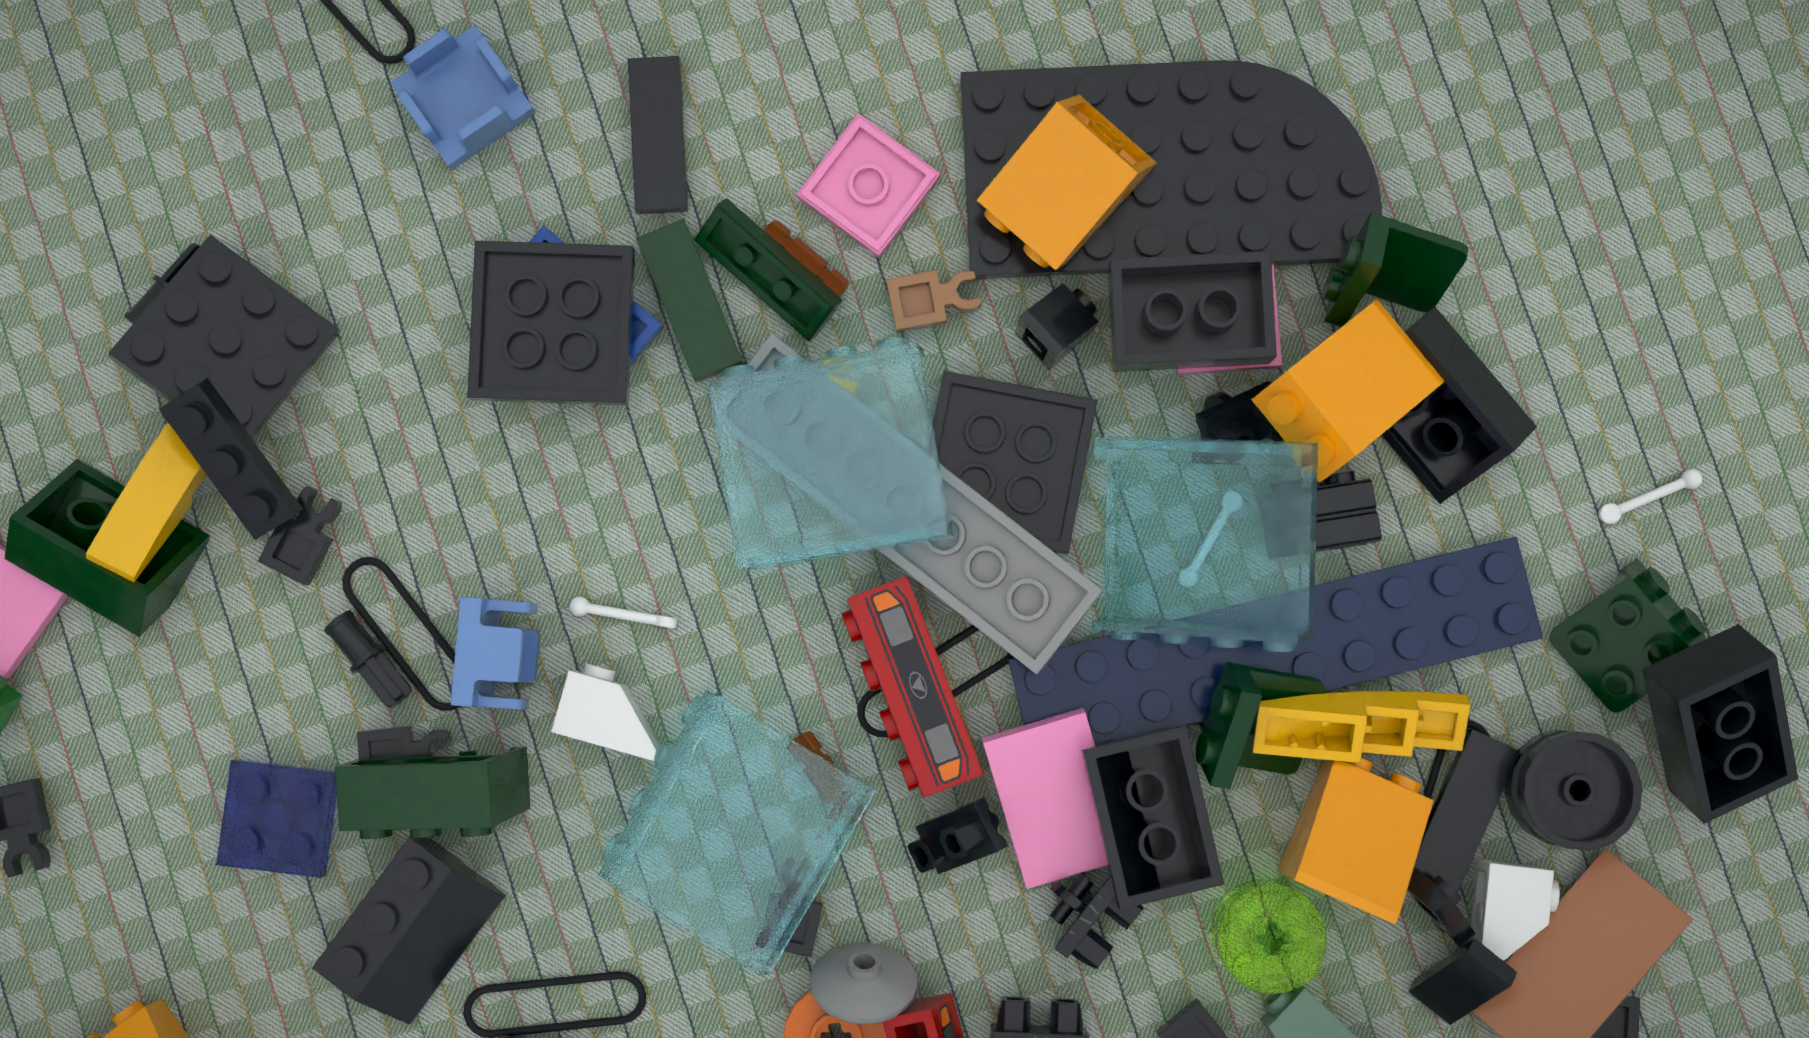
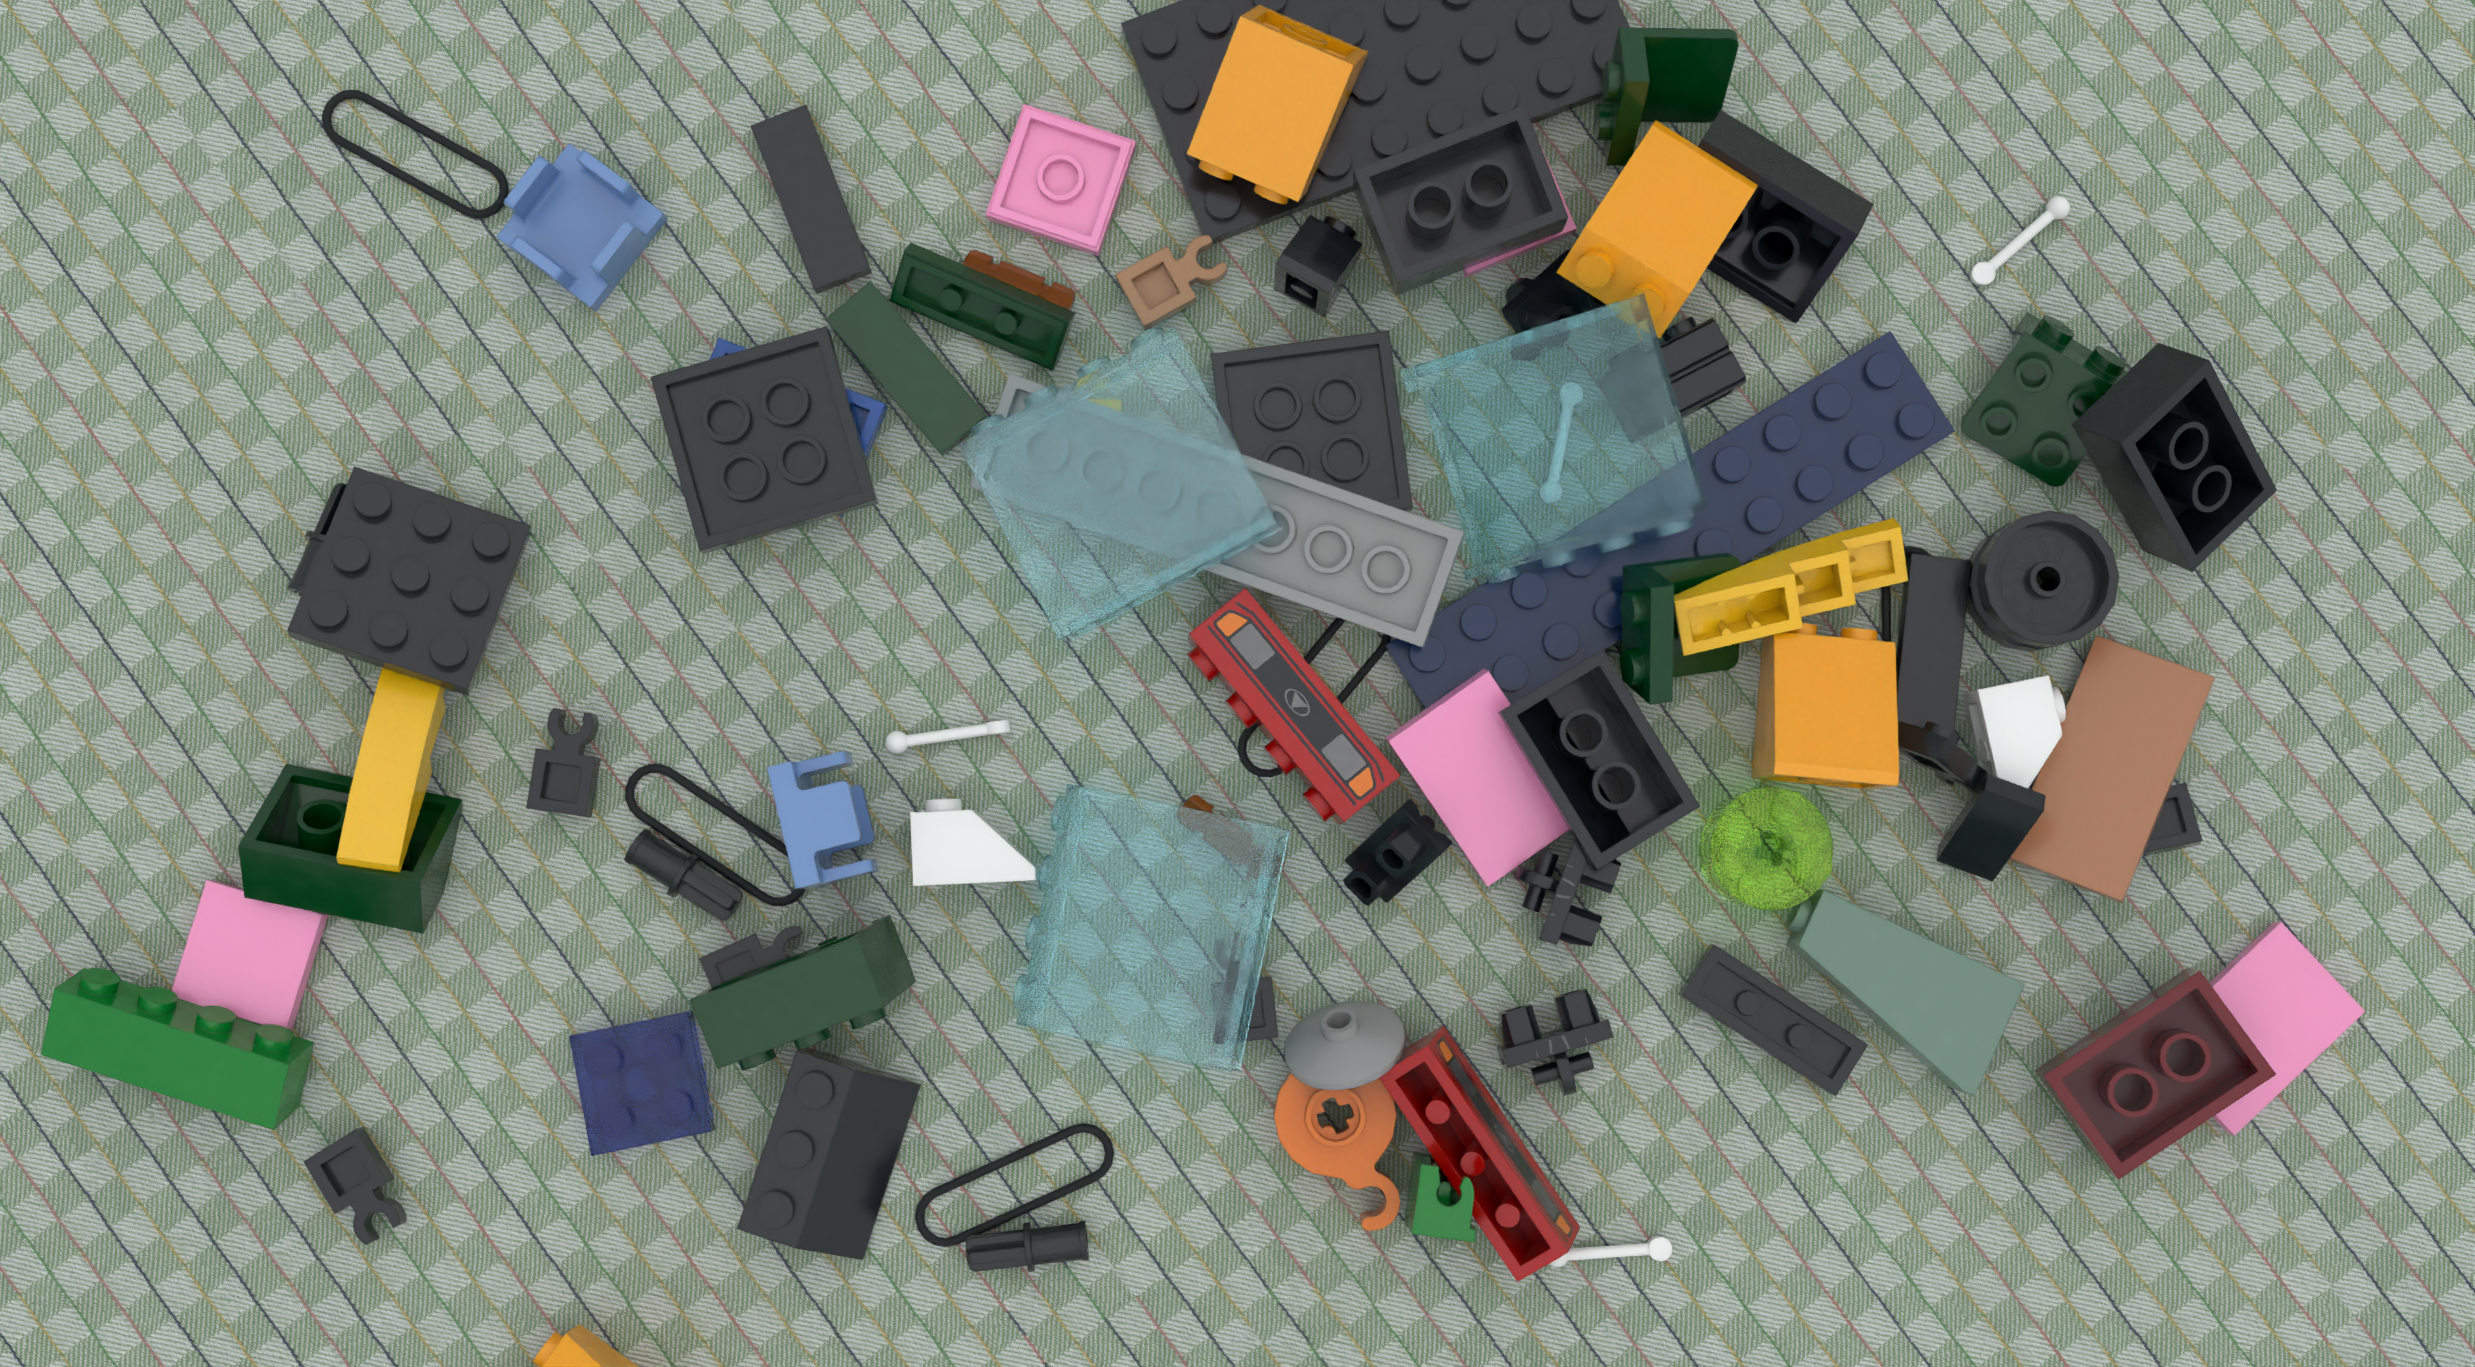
camera: 25 degrees left, 0 degrees up
(230, 458) = (461, 703): black plate -> none

